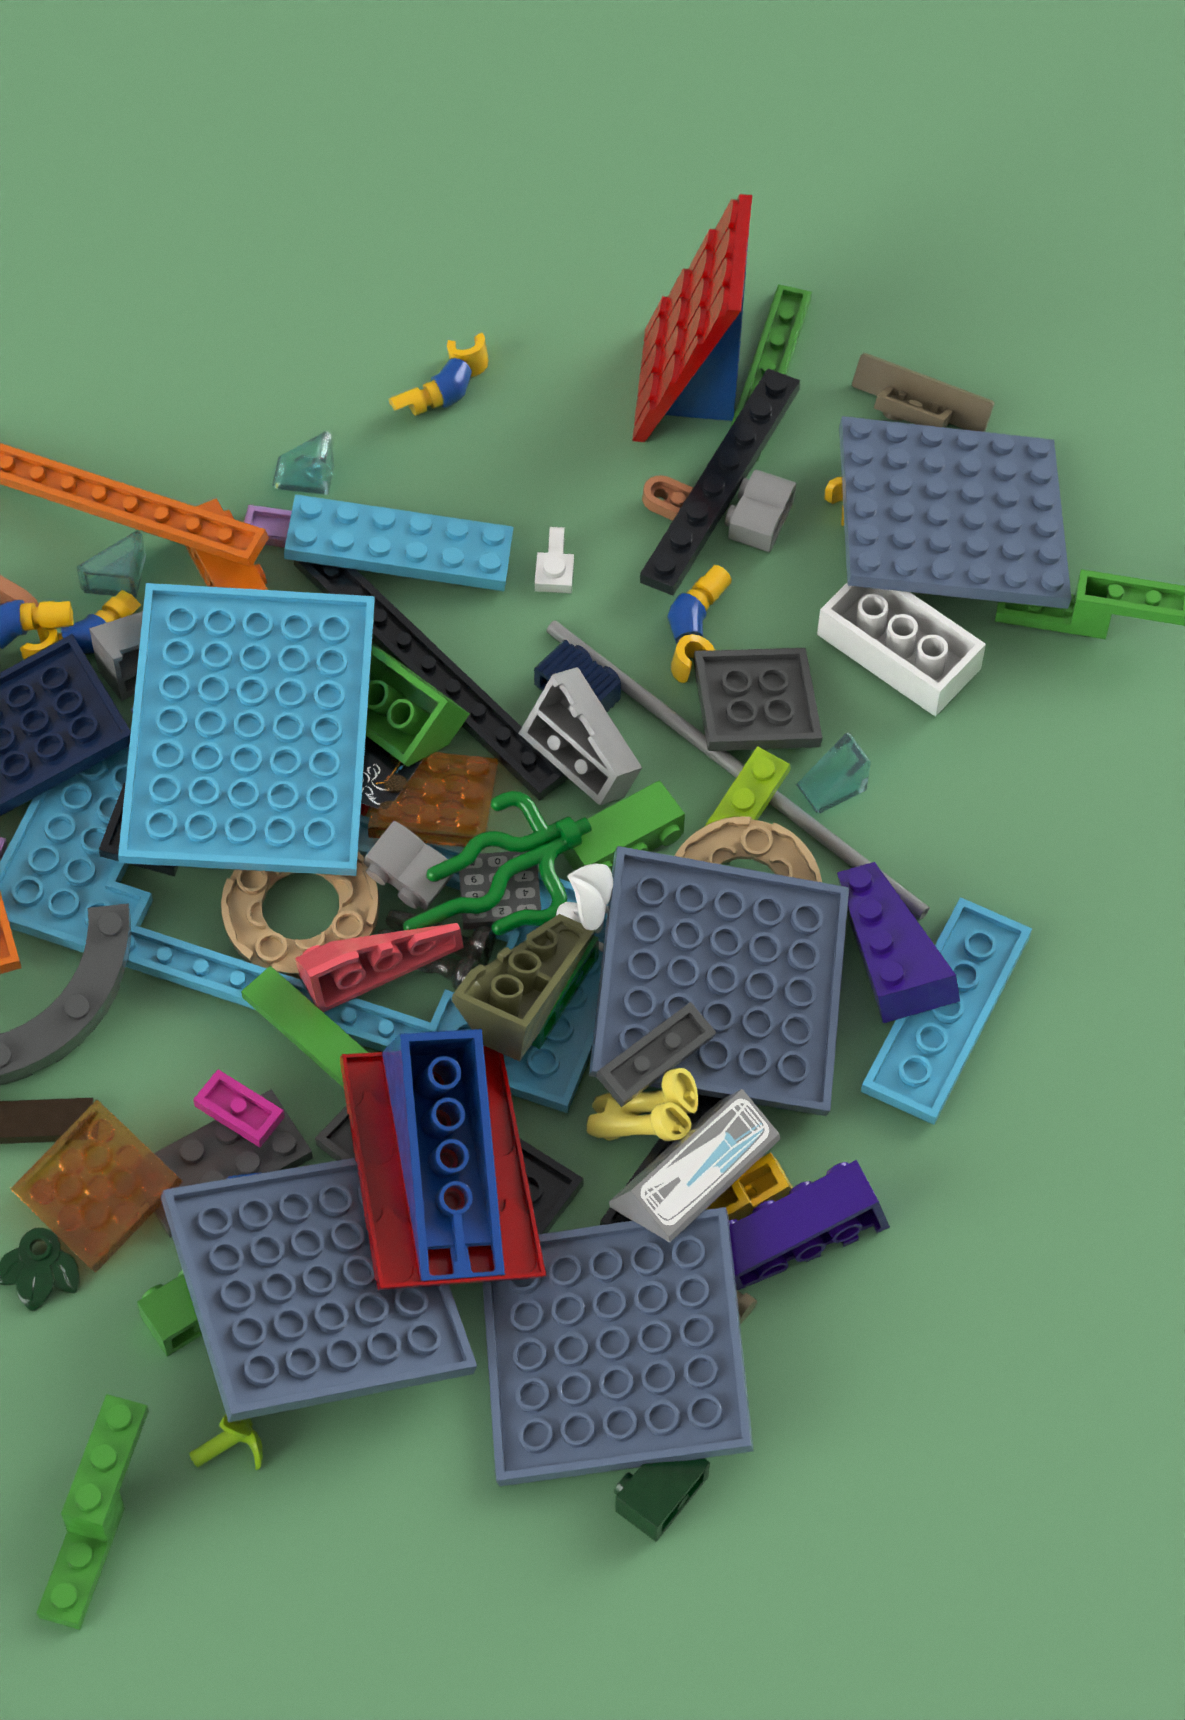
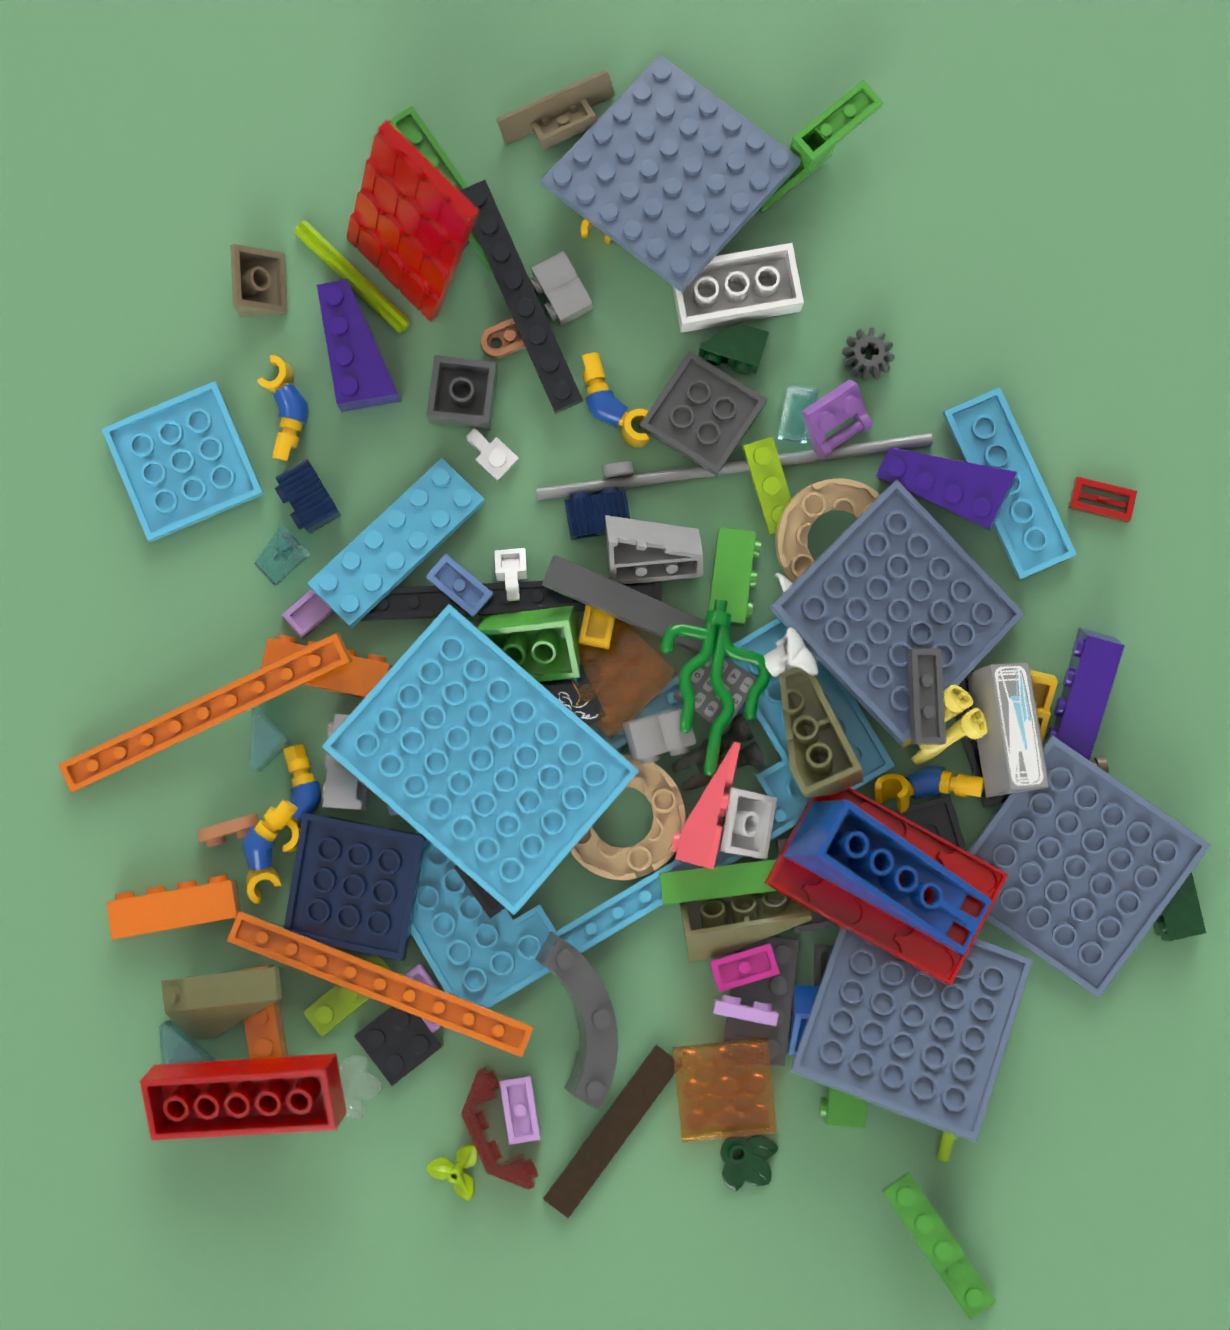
camera: 50 degrees left, 25 degrees up
(187, 1125) = (759, 1013): none -> lavender plate
(276, 1068) = (734, 922): none -> olive wedge
(322, 340) = (182, 461): none -> medium azure plate
(377, 449) = (307, 496): none -> dark blue brick
(385, 1001) = (747, 824): none -> white slope
(403, 611) = (459, 585): none -> medium blue plate
(458, 646) = (511, 567): none -> white plate
(480, 743) = (596, 628): none -> yellow tile
(506, 735) = (618, 600): none -> dark grey tile
(537, 282) = (258, 281): none -> dark tan slope
(543, 392) = (354, 359): none -> dark purple wedge
(572, 1146) = (926, 782): none -> yellow piece
(587, 495) = (462, 392): none -> dark grey brick
(613, 353) = (356, 280): none -> lime axle
(637, 668) = (618, 469): none -> light grey tile
(848, 684) = (737, 346): none -> dark green slope
(863, 795) = (831, 412): none -> medium lavender plate
(950, 795) = (856, 349): none -> dark grey gear
(1030, 1137) = (1104, 487): none -> red tile

